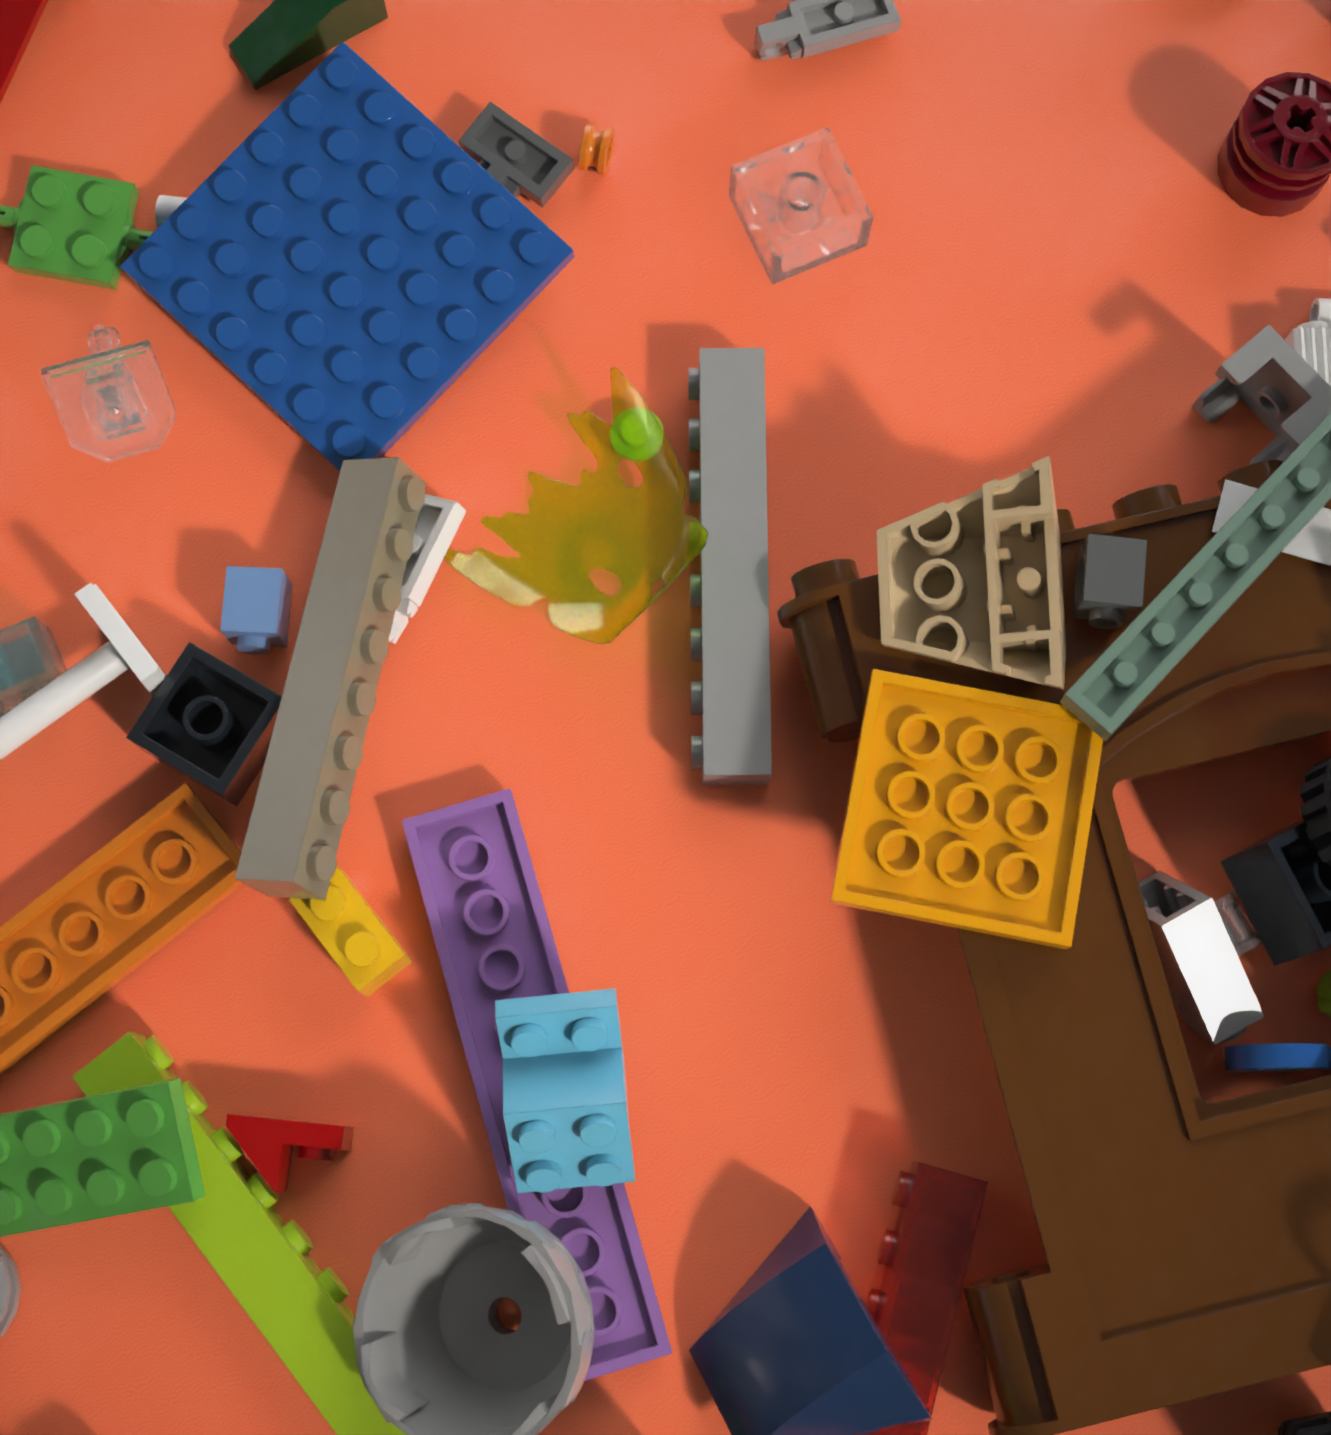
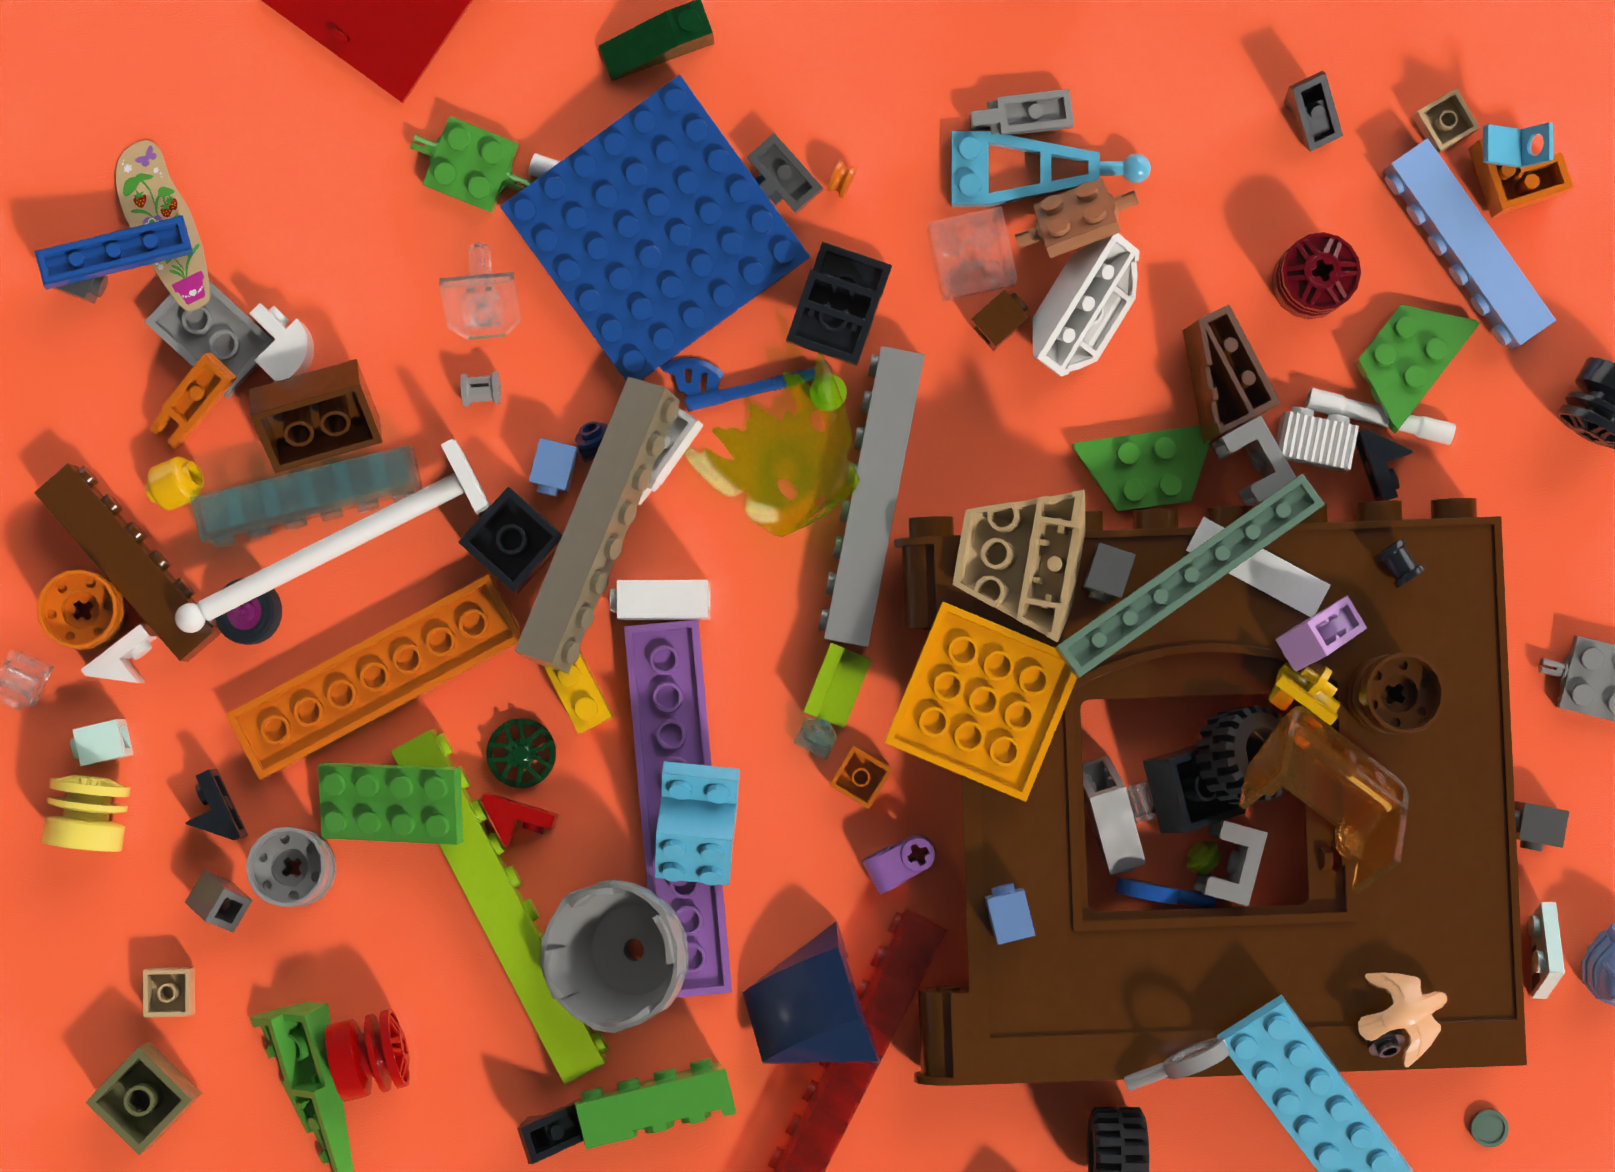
camera: 10 degrees right, 10 degrees up
(133, 523) = (481, 389): none -> light grey bush
(279, 1044) = (521, 753): none -> dark green wheel
(302, 563) = (589, 439): none -> dark blue plate
(448, 765) = (661, 600): none -> white brick
(474, 472) = (697, 400): none -> blue piece
(626, 303) = (839, 303): none -> black bracket
(722, 929) = (817, 737): none -> clear light blue plate
(736, 847) = (837, 685): none -> lime panel
(773, 105) = (971, 168): none -> medium azure plate
(801, 974) = (860, 777): none -> orange piece
(858, 289) = (1000, 319): none -> reddish brown brick
(879, 1100) = (893, 866): none -> medium lavender piece
(935, 128) = (1076, 218): none -> nougat plate
(976, 239) = (1086, 305): none -> white wedge
(1087, 1130) = (1009, 914): none -> medium blue brick
(1114, 446) = (1146, 467): none -> bright green wing
(1193, 293) = (1225, 374): none -> reddish brown wedge

